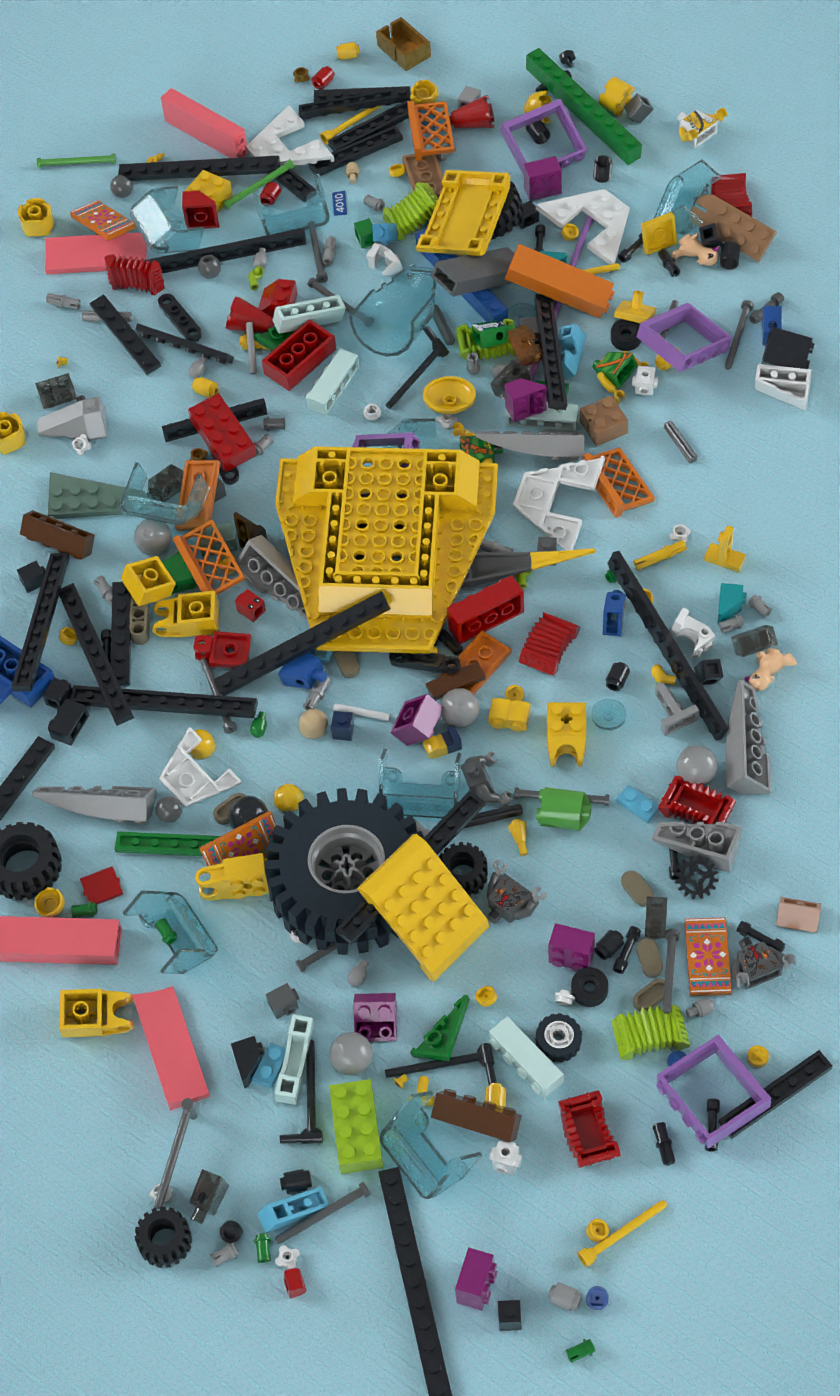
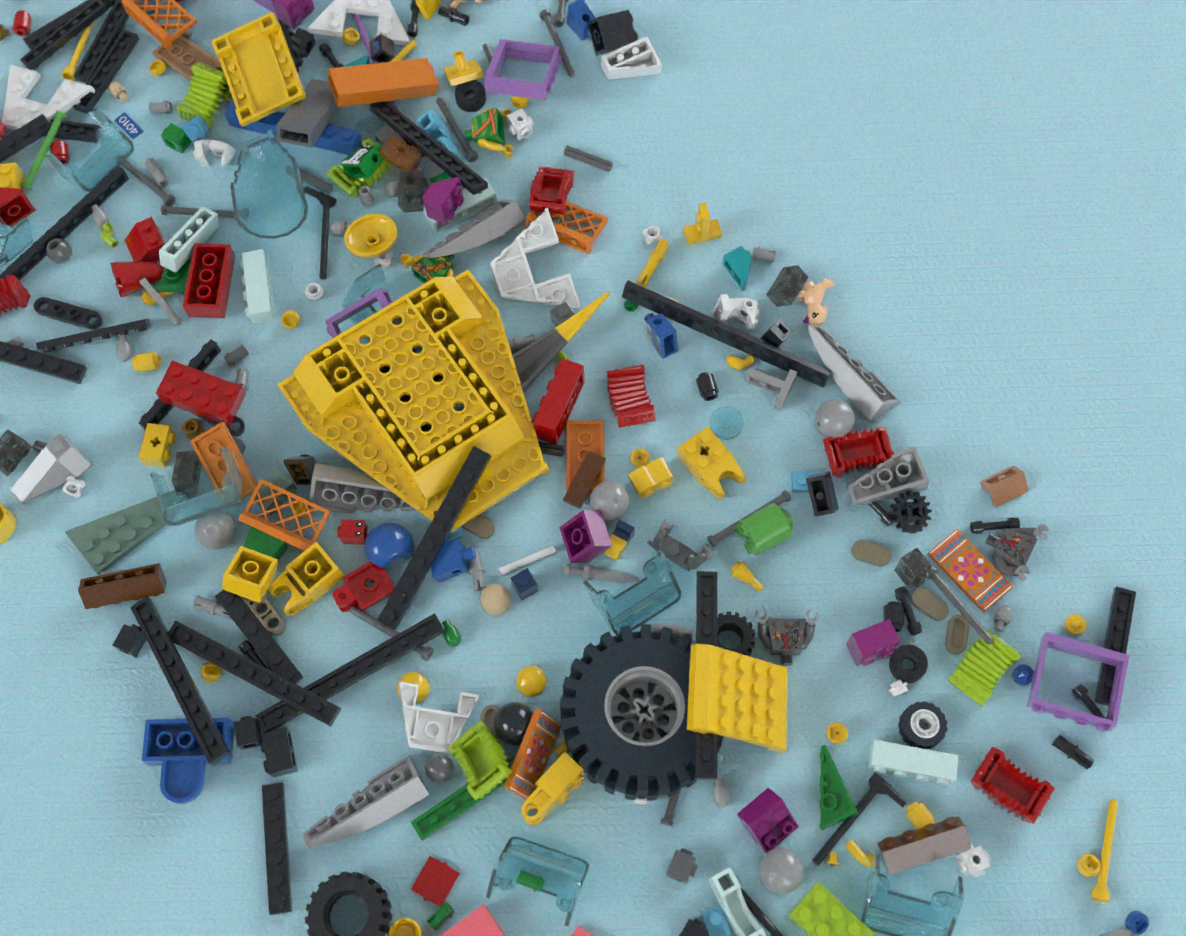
camera: 40 degrees left, 10 degrees up
(162, 452) = (157, 445): none -> yellow brick
(200, 820) = (481, 759): none -> lime piece
(267, 628) = (388, 543): none -> blue cylinder
(336, 421) = (290, 319): none -> yellow tile
(399, 751) = (587, 572): none -> light grey sword
(427, 662) = (552, 477): black plate -> none
(431, 374) = (338, 227): none -> light grey cylinder
(495, 815) = (715, 566): black axle -> none
(584, 256) = (382, 49): none -> black brick
(585, 382) = (471, 155): none -> dark grey bar
(603, 421) = (516, 175): medium nougat piece -> none
(623, 446) = (551, 189): none -> red piece
(633, 813) = (822, 494): none -> black brick
(732, 623) = (757, 280): light grey pin -> none

